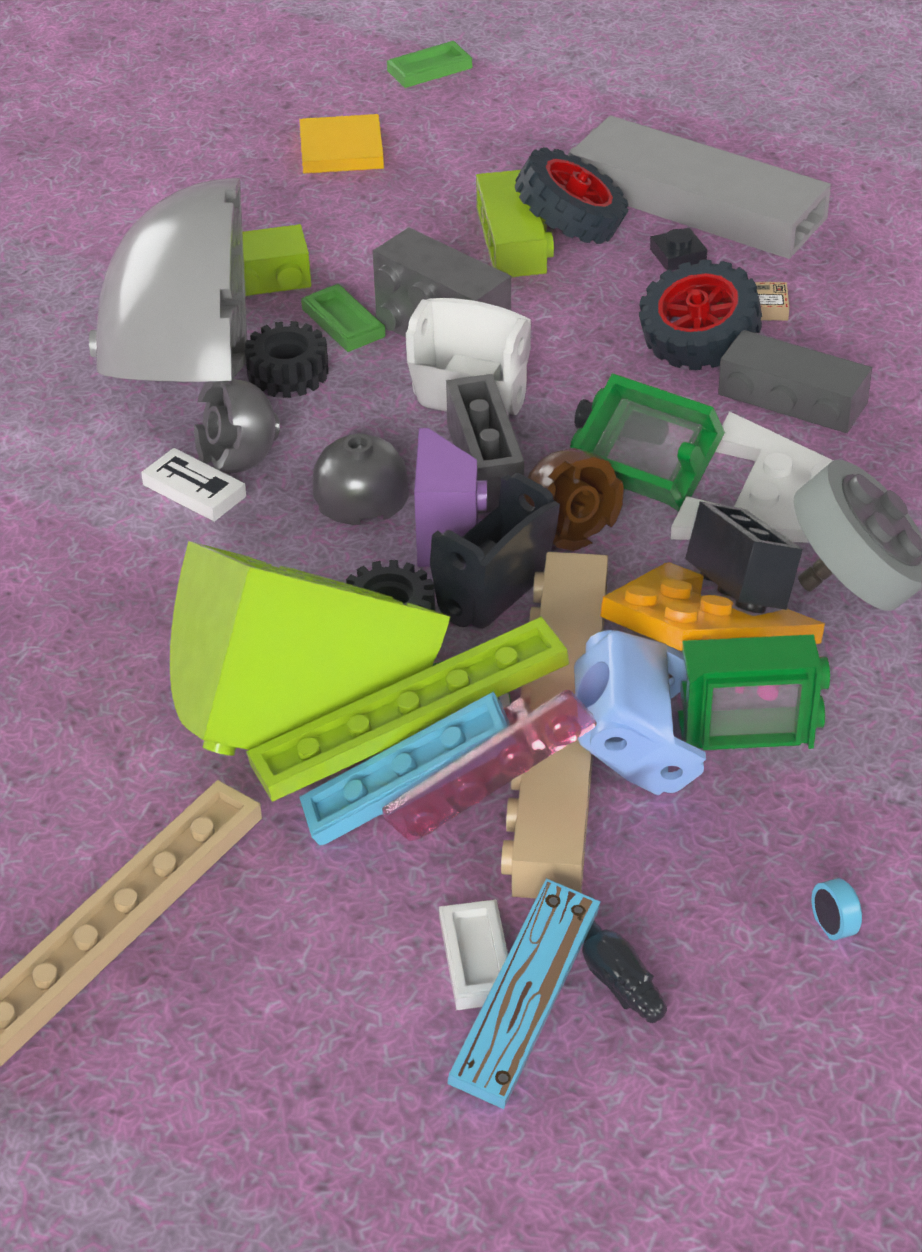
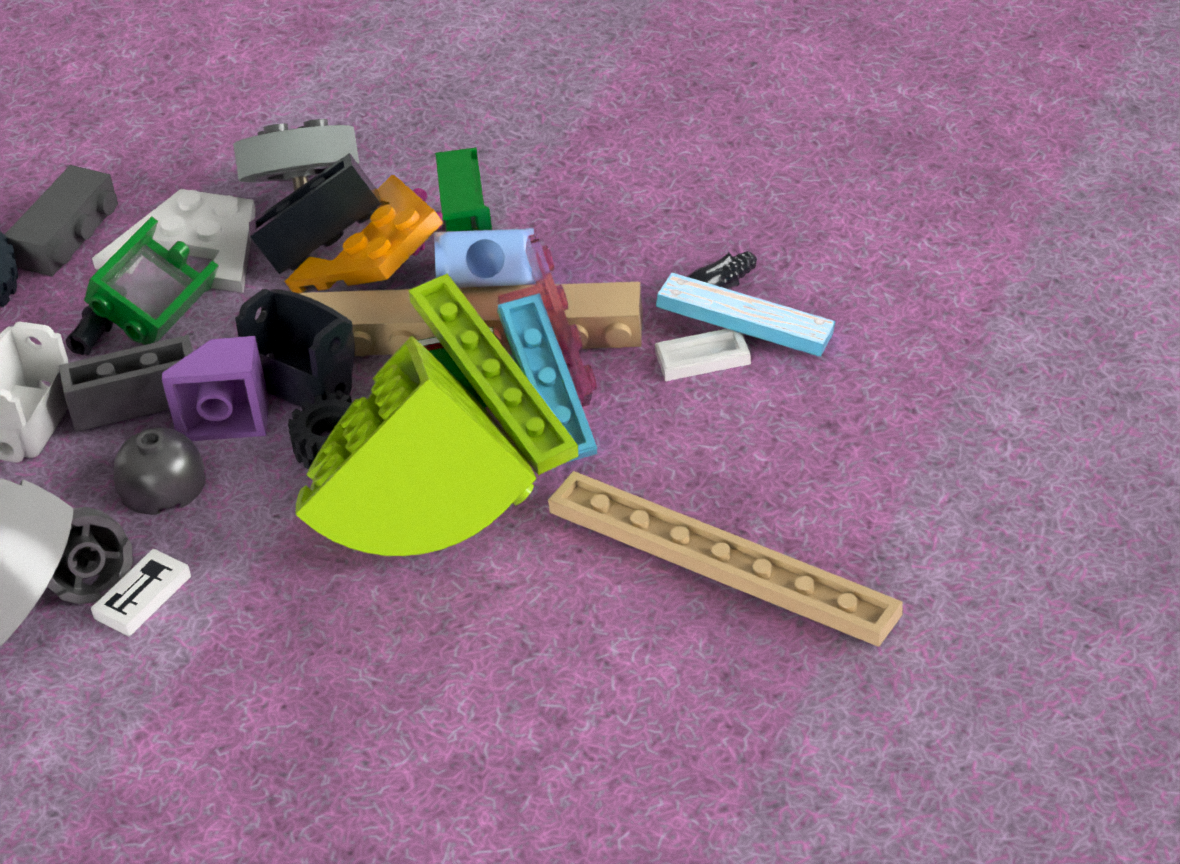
camera: 90 degrees left, 0 degrees up
(586, 494) = (204, 316): reddish brown cylinder -> none
(836, 908) = (652, 182): medium azure tile -> none

